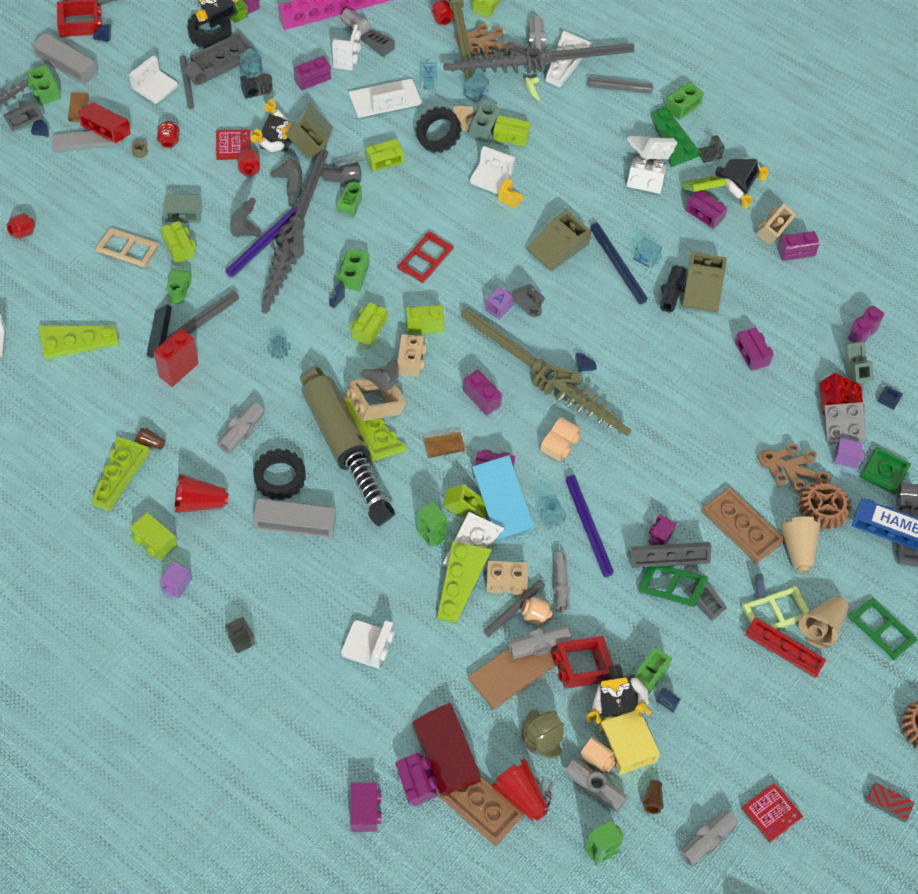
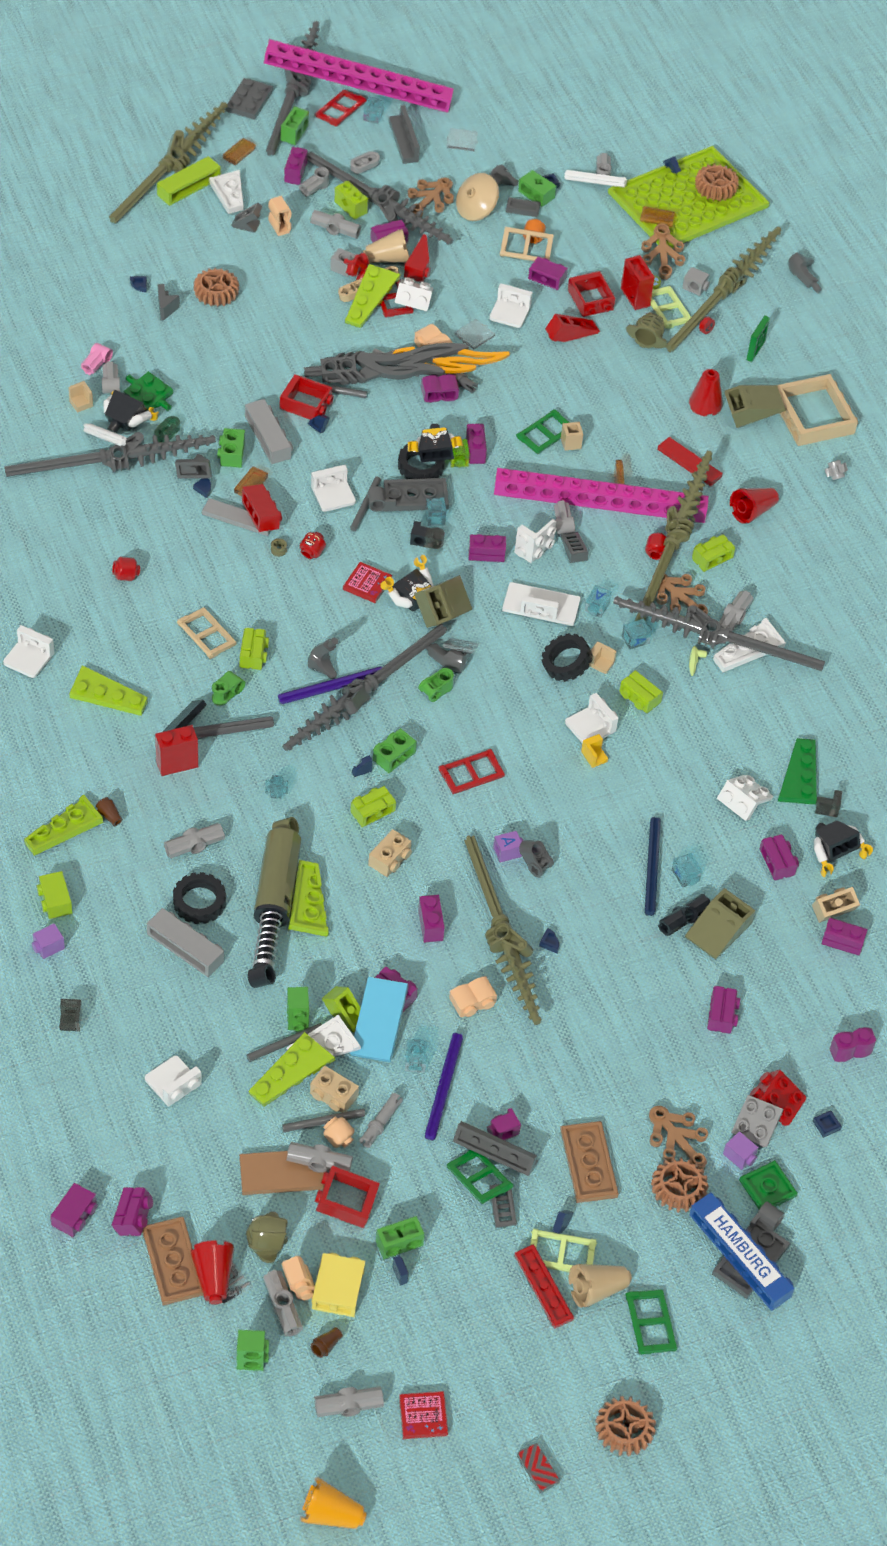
camera: 30 degrees right, 5 degrees down
(182, 208) = (278, 620): sand green brick -> none
(198, 495) = (115, 879): red cone -> none
(248, 163) = (368, 606): red head -> none
(291, 170) = (402, 633): dark grey animal -> none
(383, 377) = (346, 858): dark grey animal -> none
(384, 155) = (500, 657): lime brick -> none
(394, 400) = (333, 861): tan window -> none
(424, 319) = (426, 827): lime brick -> none
(435, 560) = (279, 1044): none -> dark grey bar
(444, 445) = (364, 948): clear orange tile -> none
(446, 749) = (175, 1203): dark red slope -> none
(484, 121) = (619, 669): sand green brick -> none
(560, 240) = (608, 817): olive slope -> none
(619, 695) = (353, 1239): torso -> none
(620, 85) = (785, 697): dark grey axle -> none
(653, 147) = (766, 771): white bracket -> none
(684, 100) = (838, 742): bright green brick -> none
(703, 183) = (792, 831): lime tile -> none
(801, 541) = (629, 1203): tan cone -> none
(856, 365) = (815, 1072): sand green brick -> none

